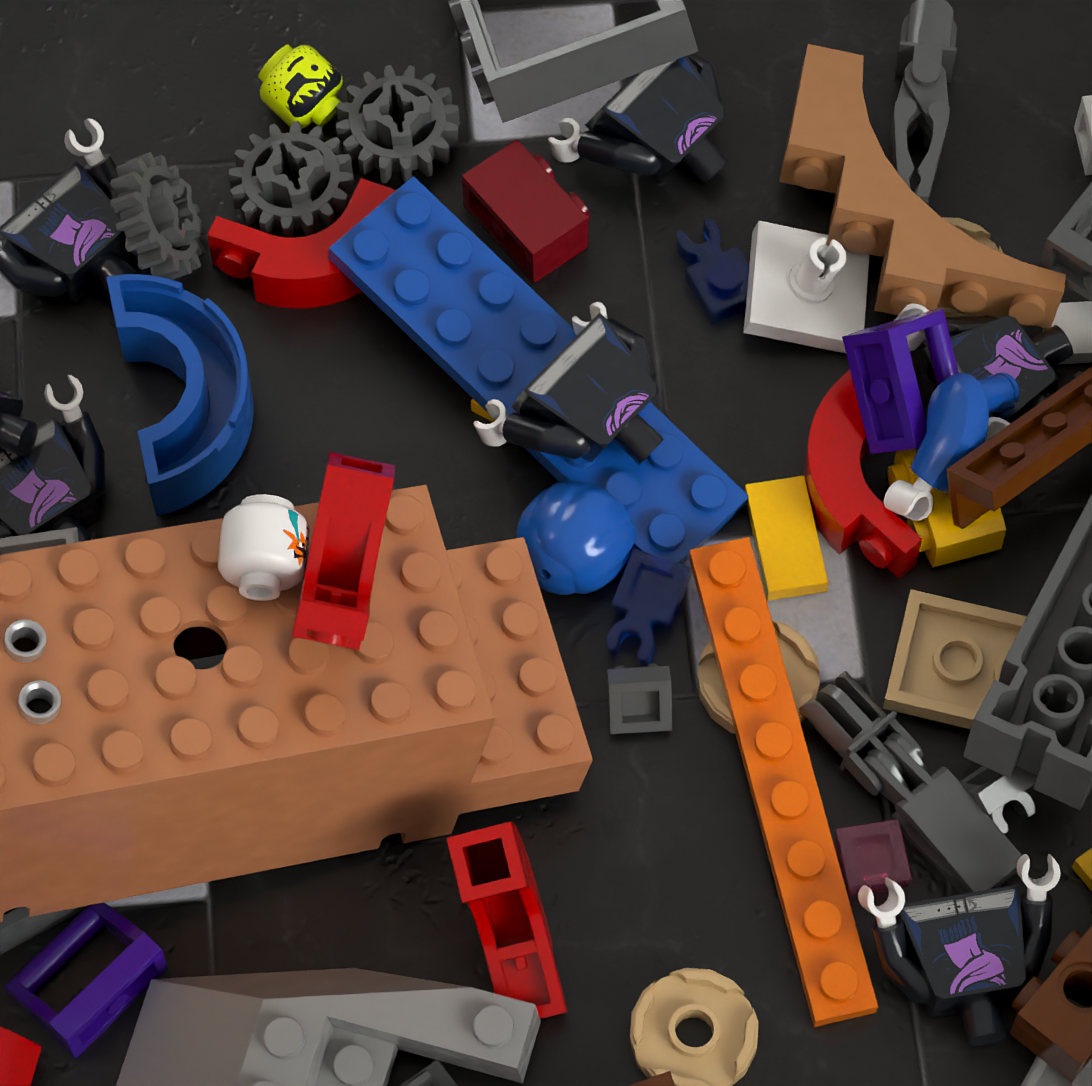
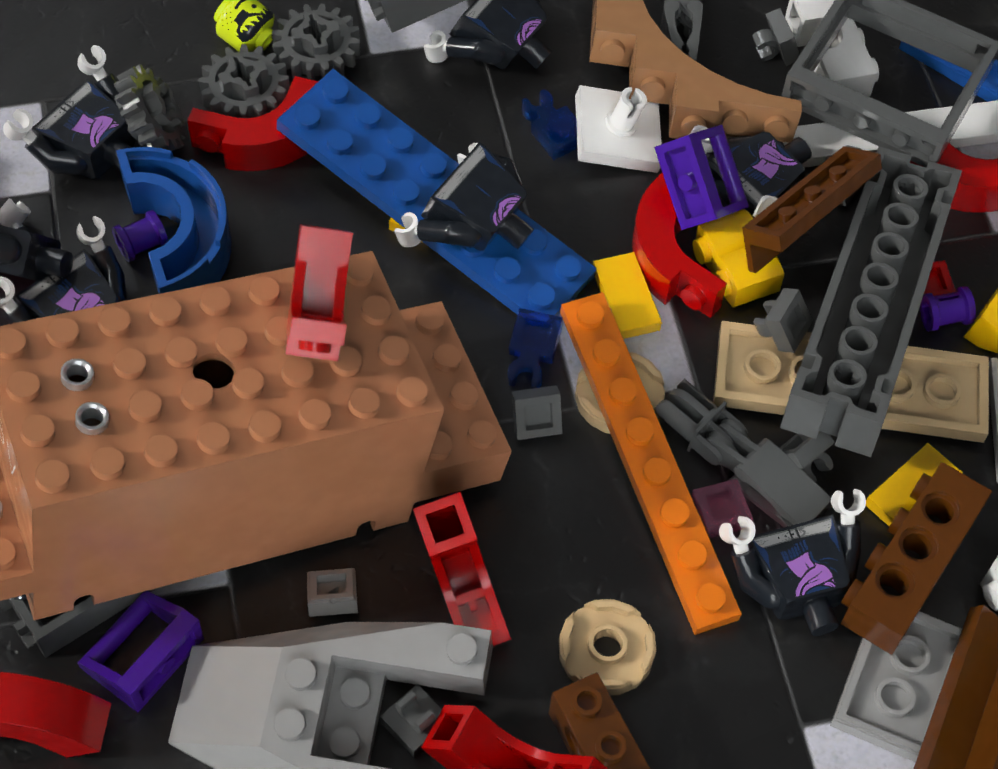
camera: 10 degrees left, 5 degrees down
(130, 396) = (140, 235): none -> dark purple bush
(263, 546) = (256, 293): white head -> none
(339, 924) = (332, 592): none -> light grey tile
(526, 210) = (414, 91): dark red brick -> none
(576, 537) = (479, 302): blue piece -> none
(955, 427) = (742, 200): blue arm -> none
(996, 601) = (785, 320): none -> dark grey tile
(1052, 167) = (776, 39): none -> dark grey tile

